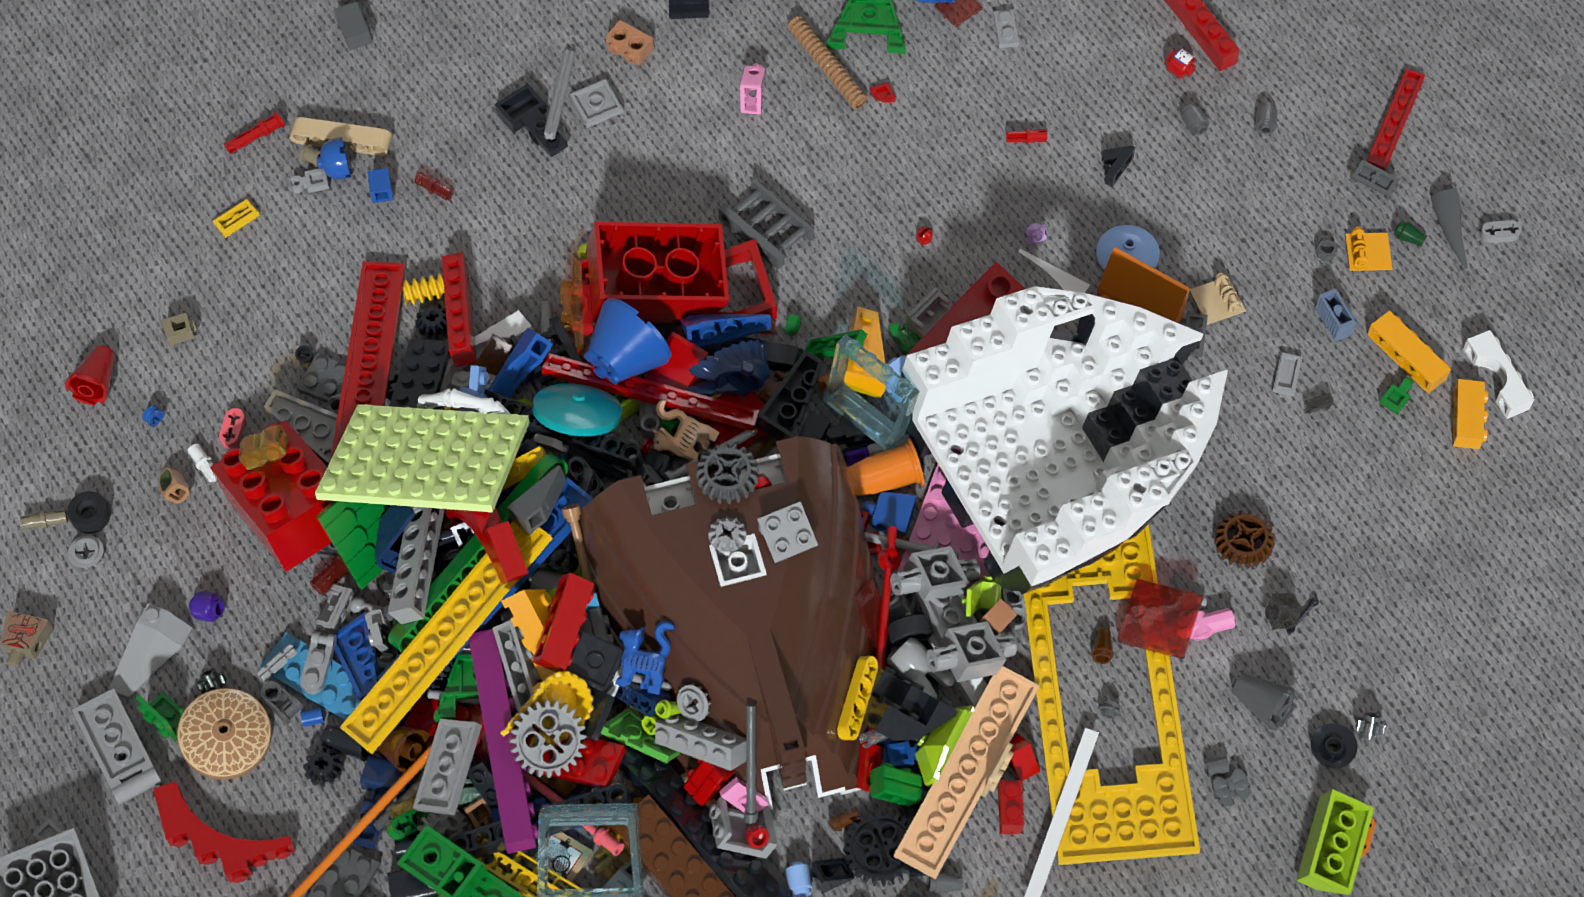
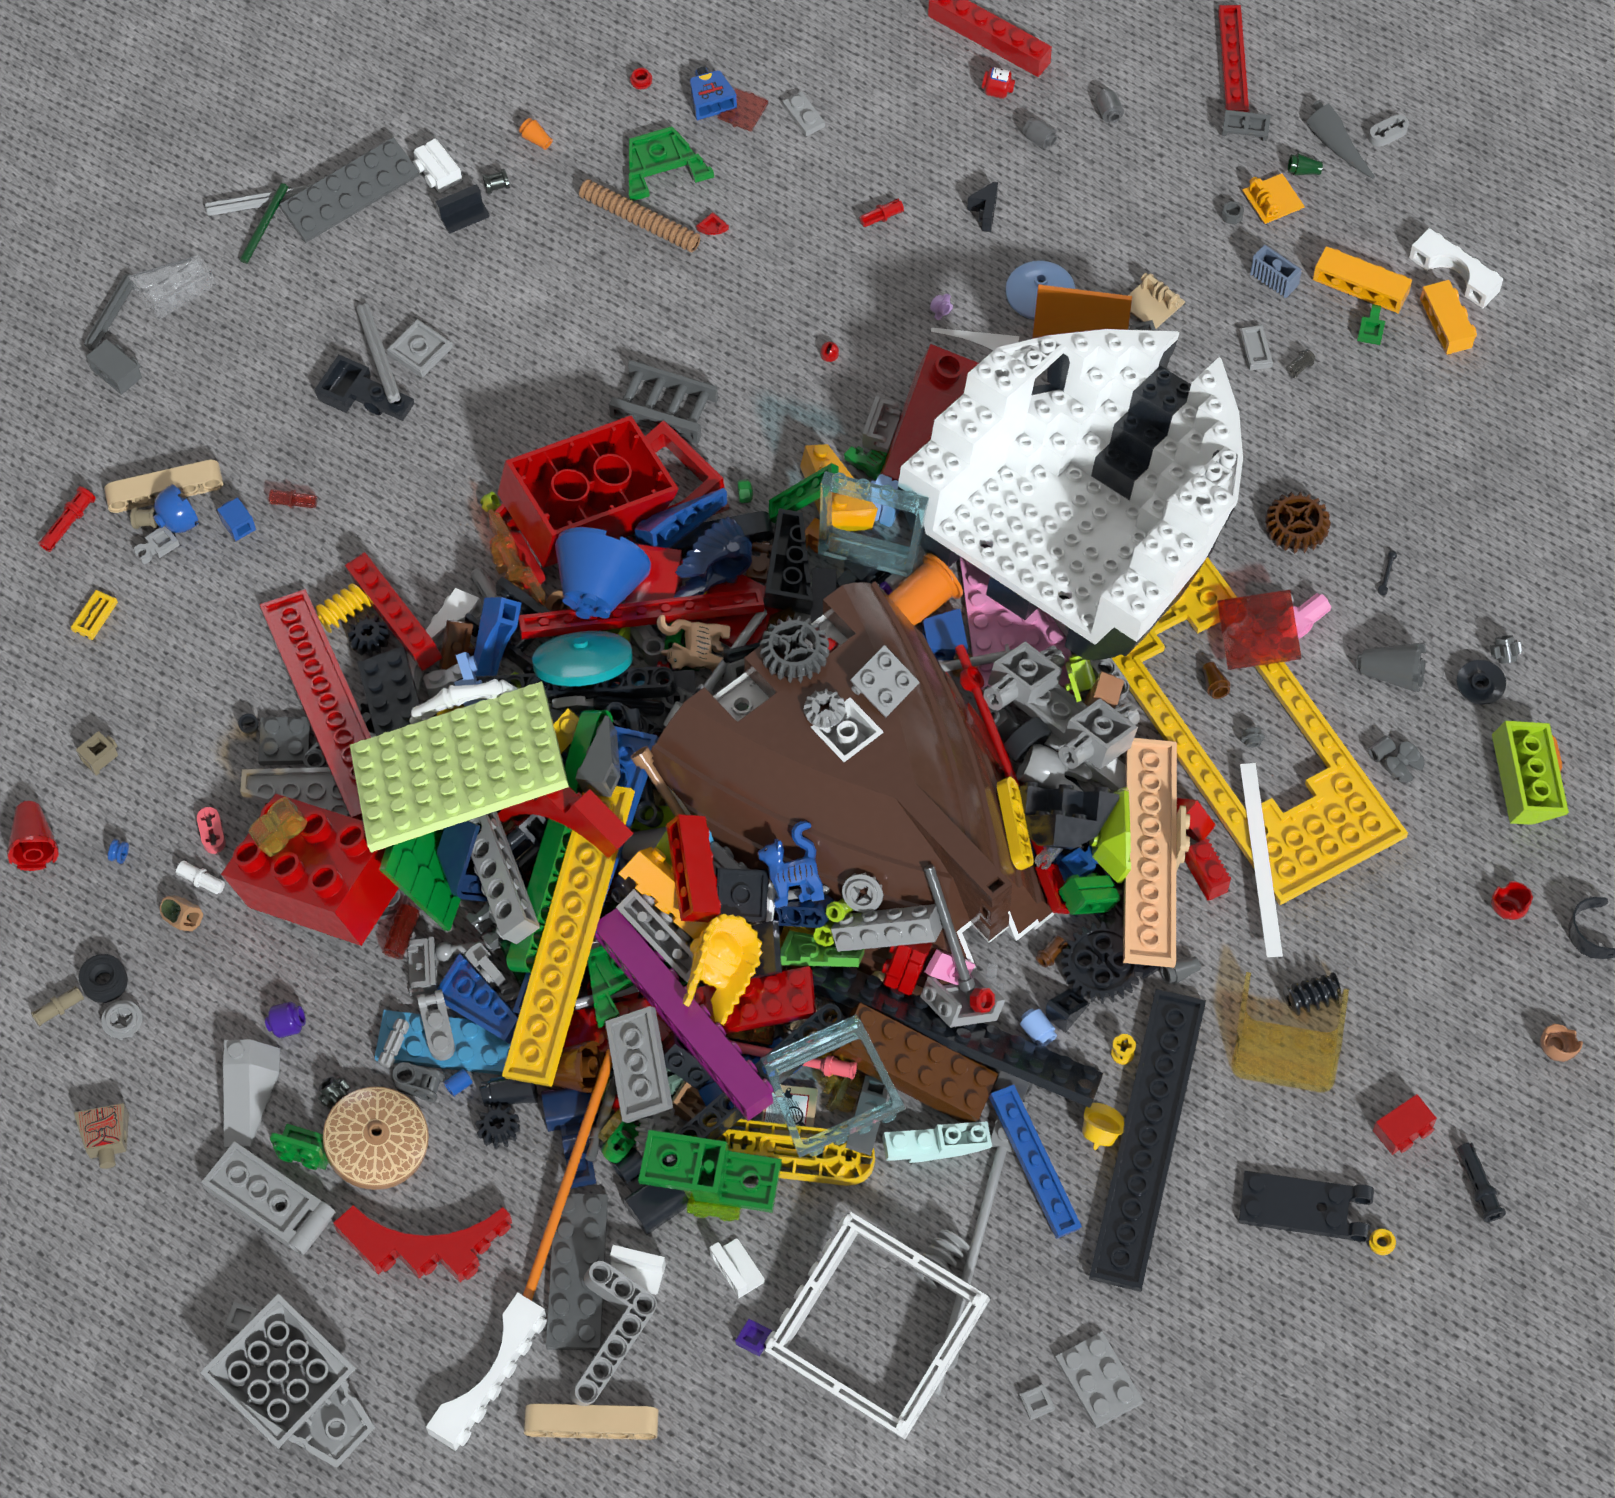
camera: 25 degrees left, 0 degrees up
(533, 754) = (728, 1012): light grey gear -> none
(629, 43) = (422, 270): nougat brick -> none
(752, 79) = (577, 260): bright pink torso -> none
(1283, 611) = (1370, 574): clear smoke brick -> none

